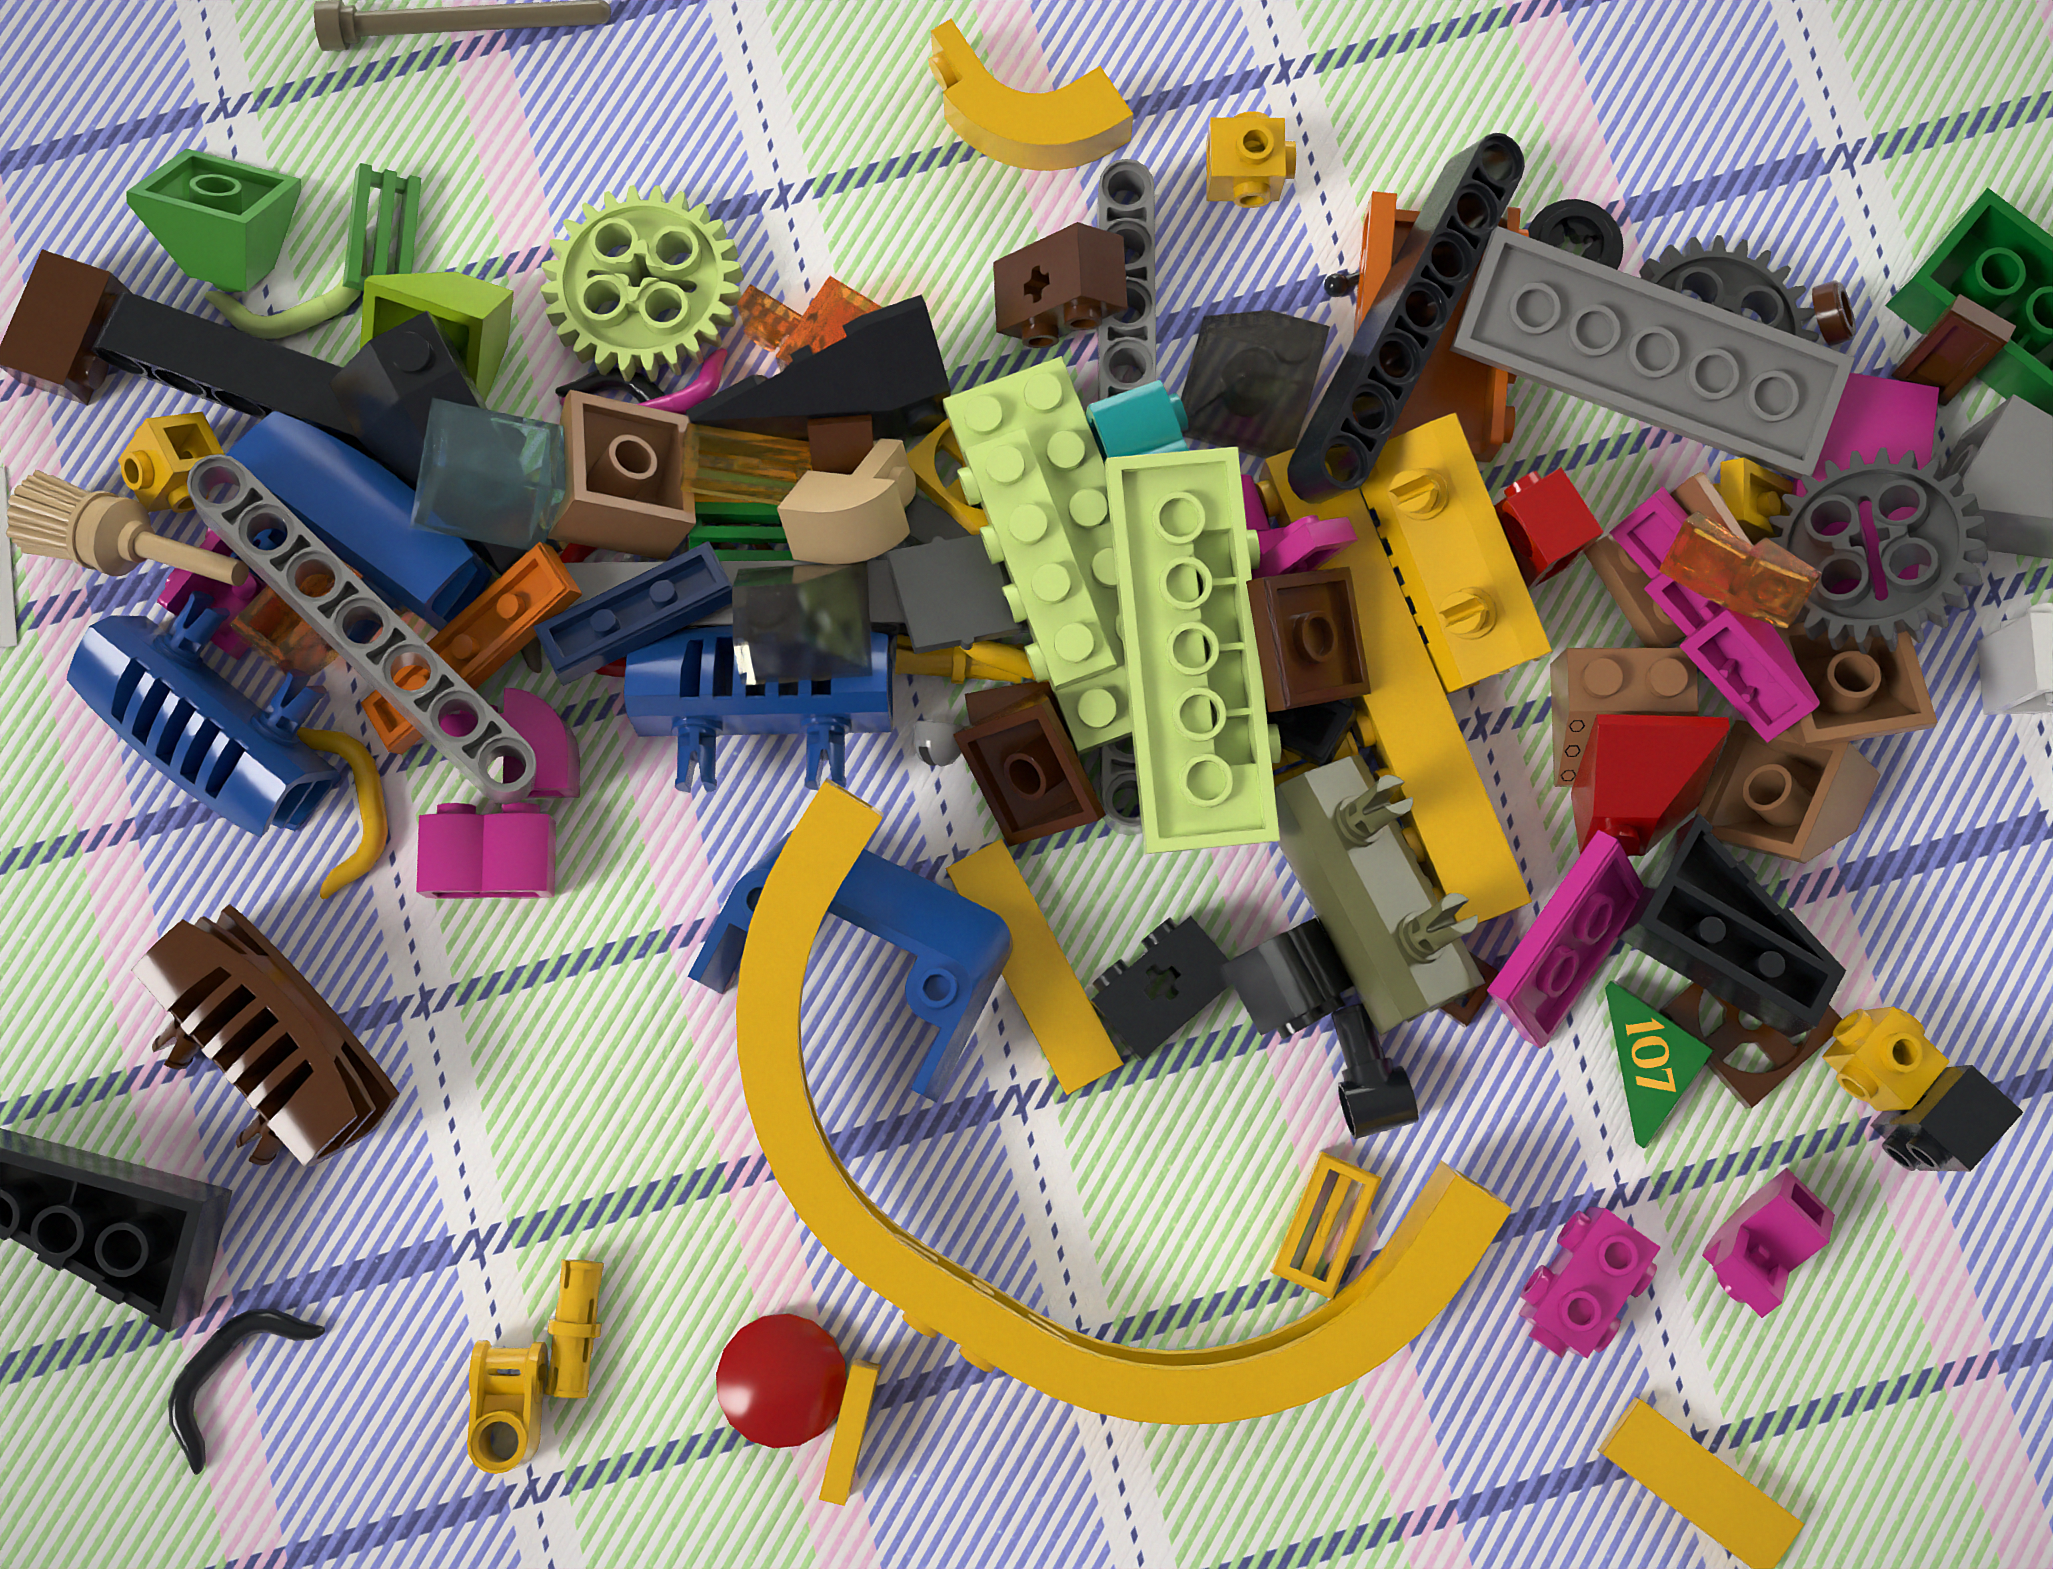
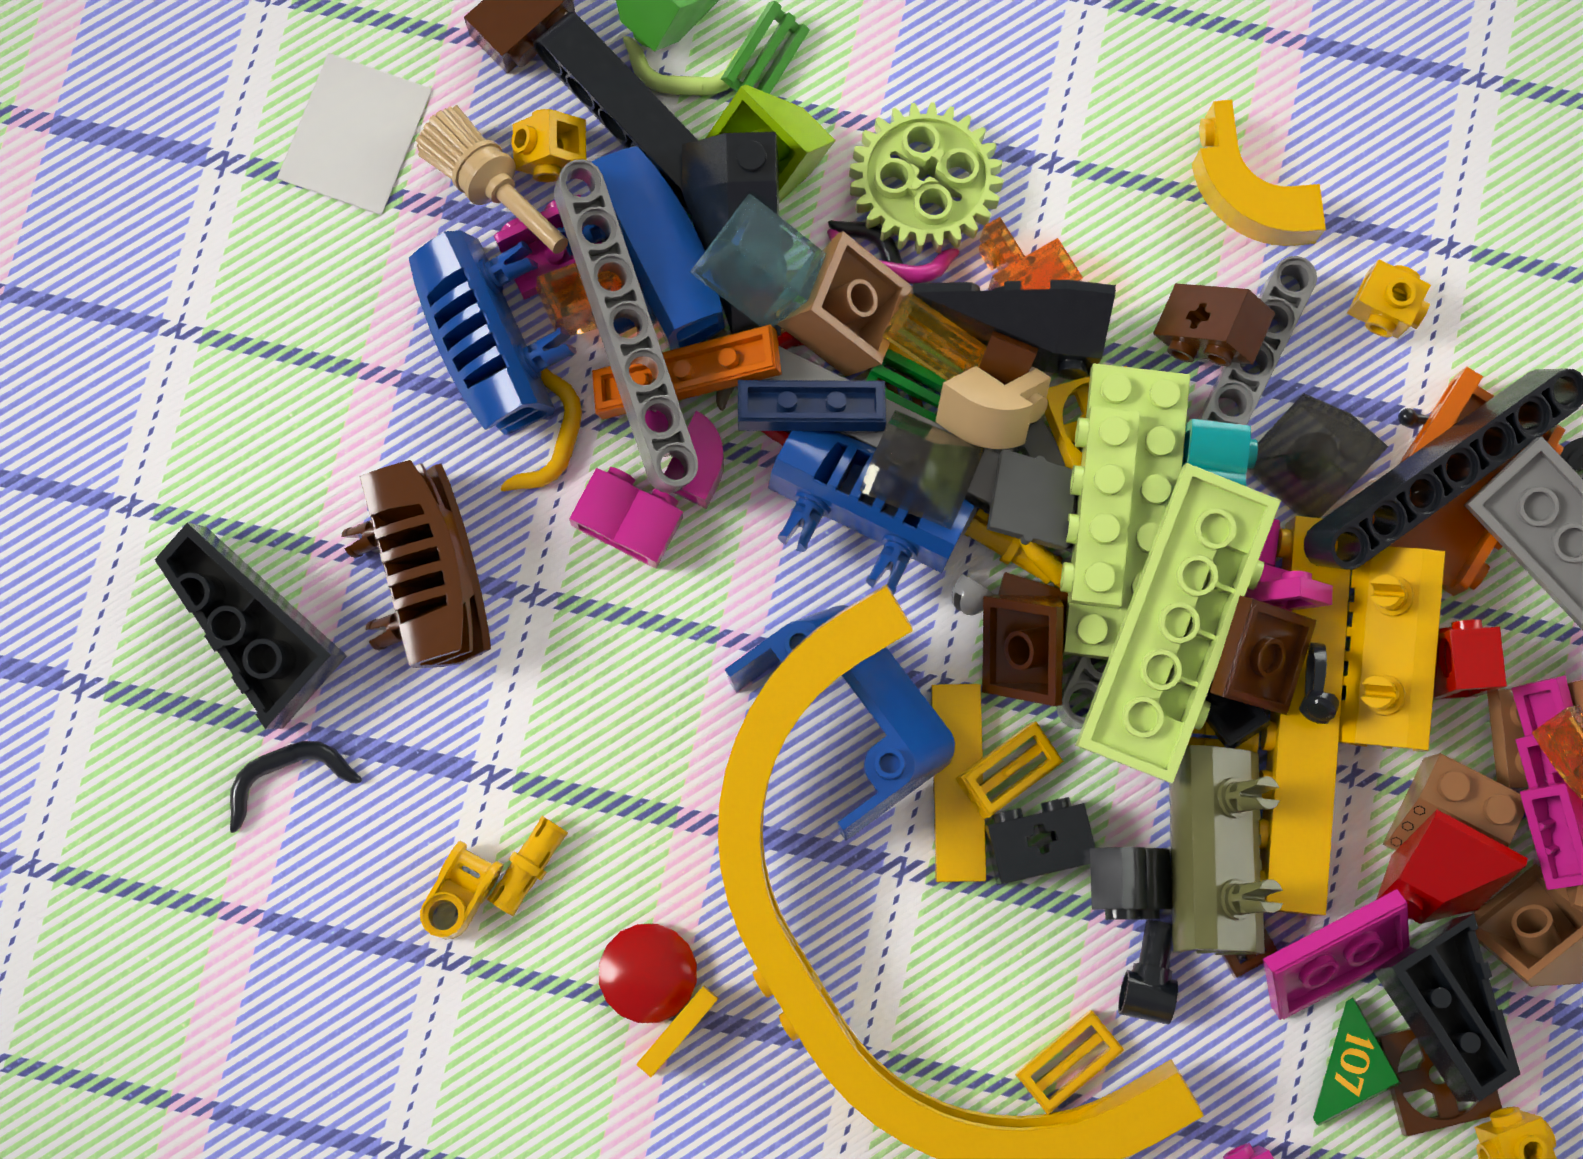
camera: 25 degrees right, 0 degrees up
(1062, 966) = (977, 792): none -> yellow tile
(1398, 663) = (1317, 705): none -> black piece

